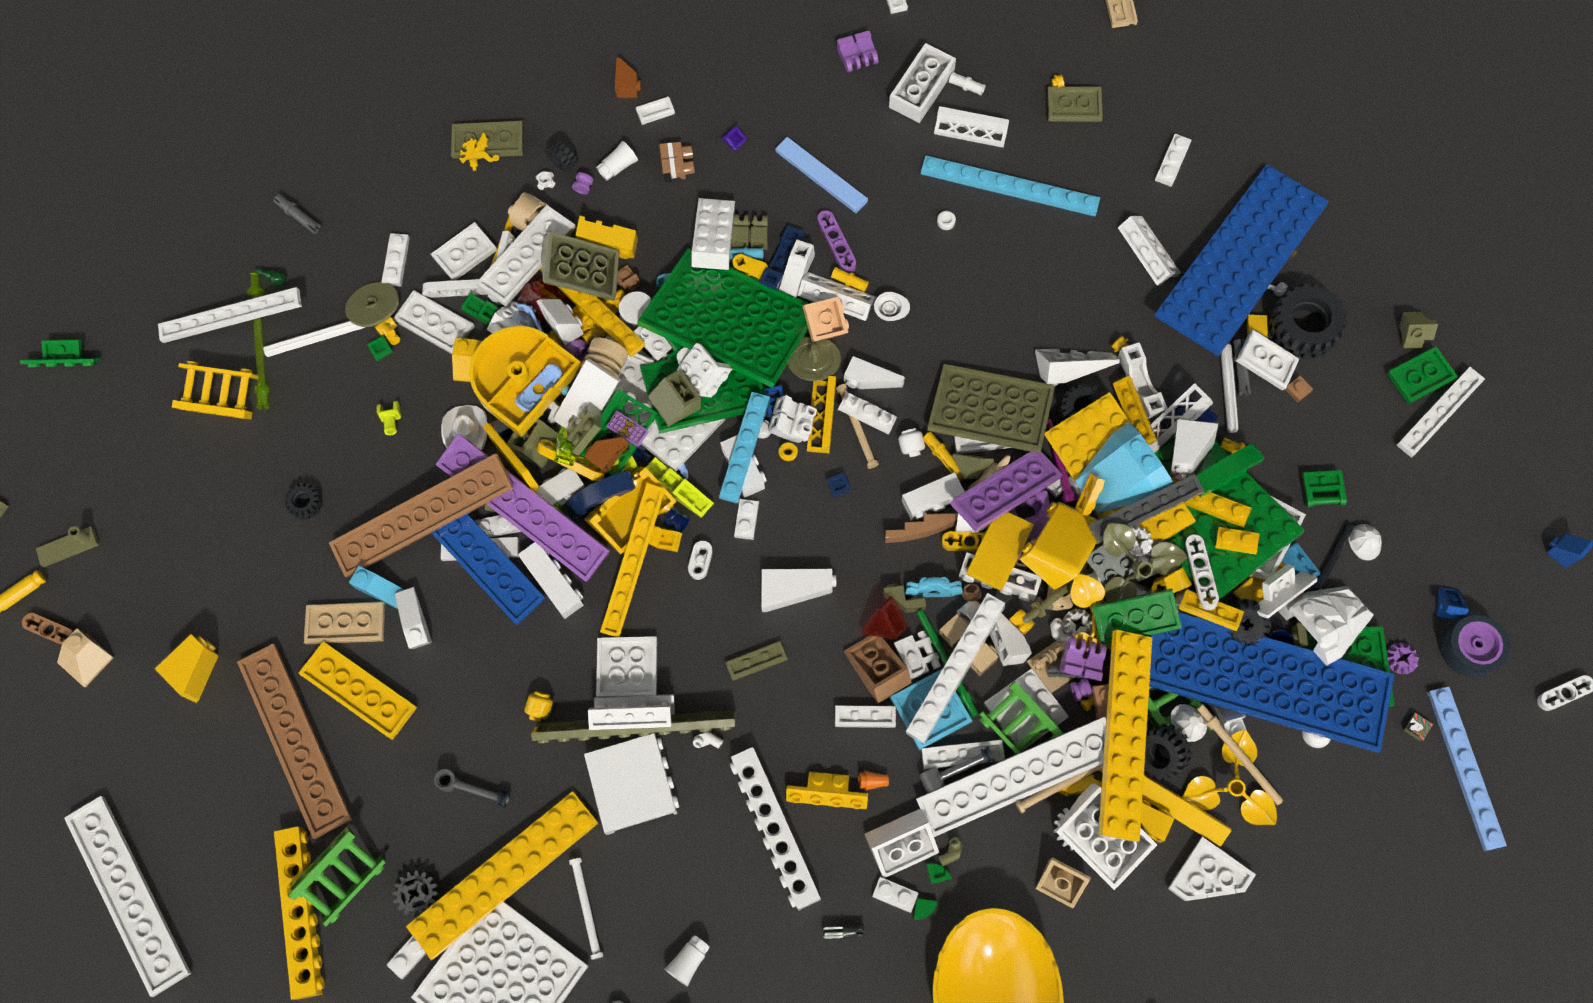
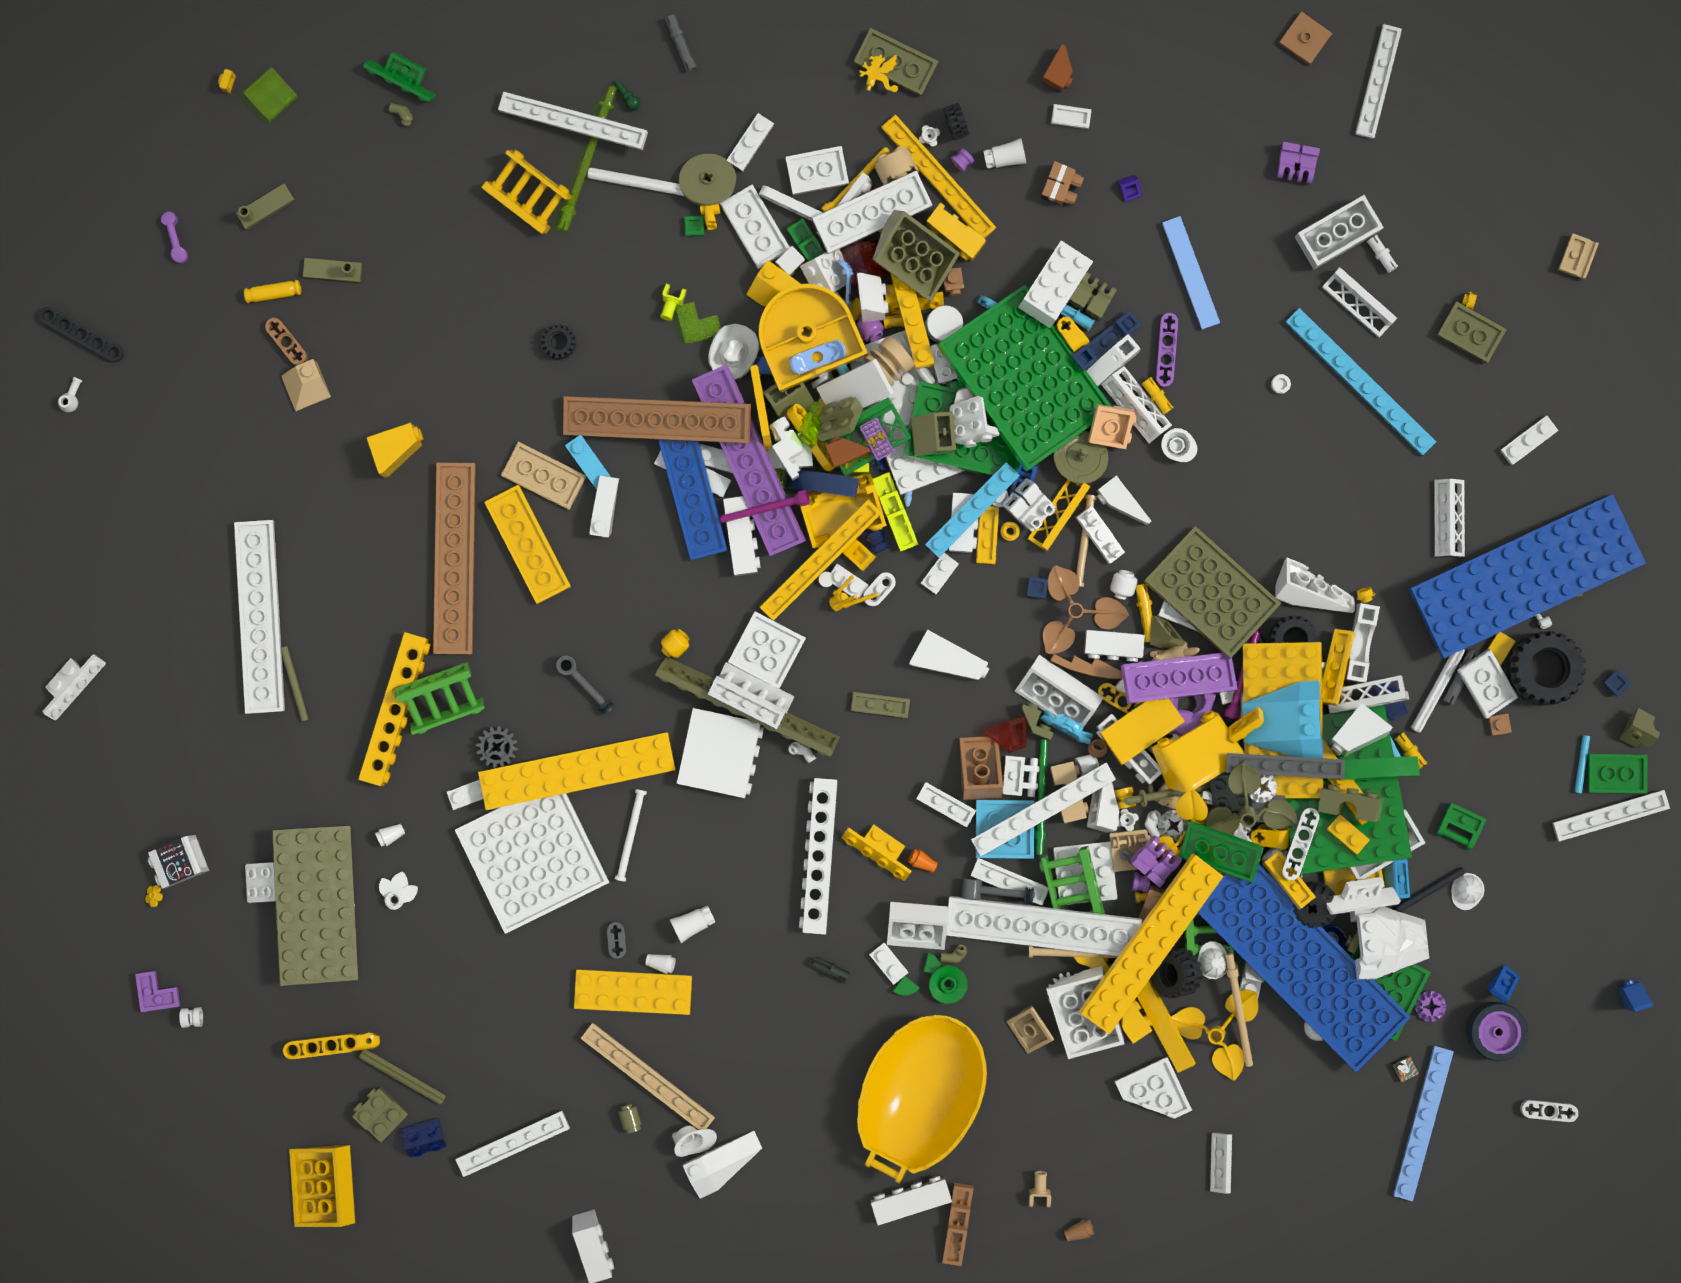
camera: 30 degrees right, 15 degrees up
(76, 385) = (403, 112): none -> olive arm
(189, 941) = (294, 684): none -> olive bar
(420, 429) = (692, 327): none -> clear neon green plate
(476, 329) = (790, 261): none -> white panel
(551, 478) = (787, 446): none -> white plate
(570, 207) = (939, 177): none -> yellow tile
(584, 514) = (801, 498): none -> magenta piece
(665, 570) = (839, 576): none -> white hinge
(671, 586) = (841, 600): none -> yellow plant
(771, 466) = (987, 536): none -> yellow tile
(861, 467) = (1066, 583): none -> medium nougat plant
(907, 562) = (1058, 692): none -> white slope
(971, 882) = (953, 992): none -> green dish
(1035, 636) = (1132, 818): none -> white plate
(1206, 515) = (1367, 805): none -> olive arch
(1313, 910) = (1221, 1163): none -> white plate
(1371, 304) = (1616, 682): none -> dark blue plate
(1388, 385) = (1582, 764): none -> medium azure bar

